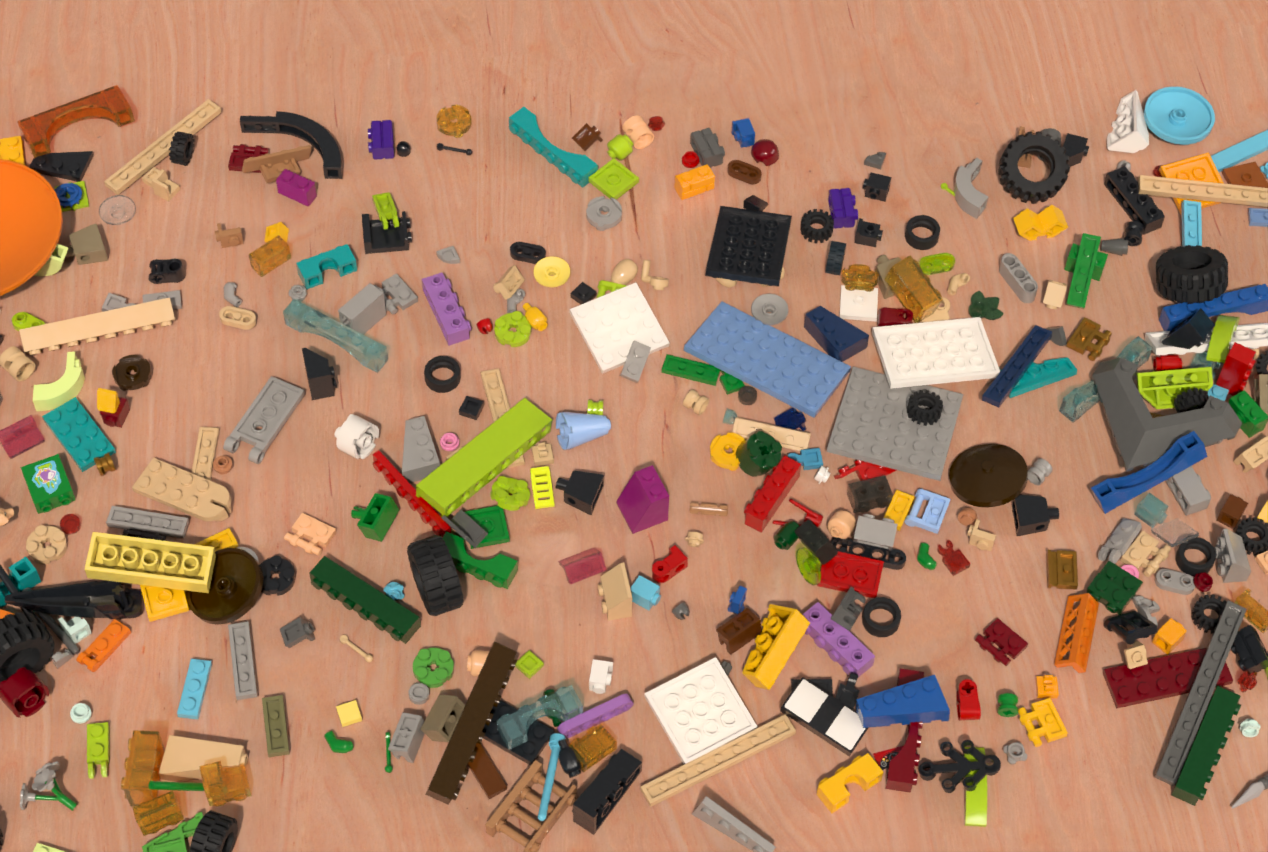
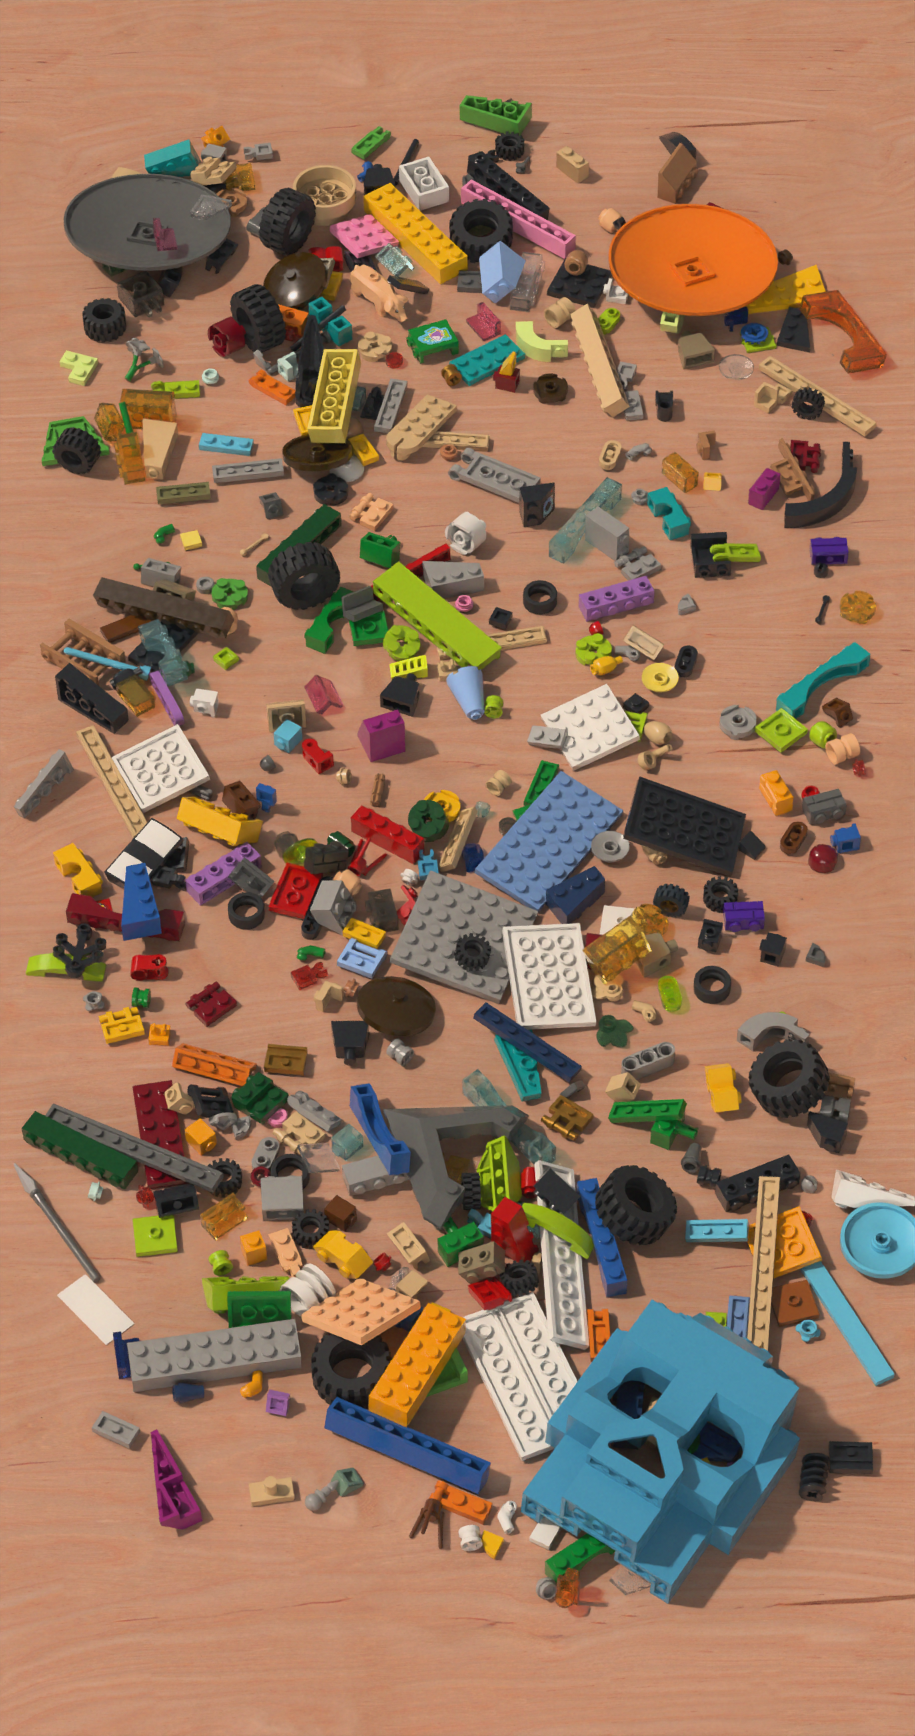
camera: 95 degrees right, 5 degrees down
(794, 583) = (284, 841): none -> clear smoke head

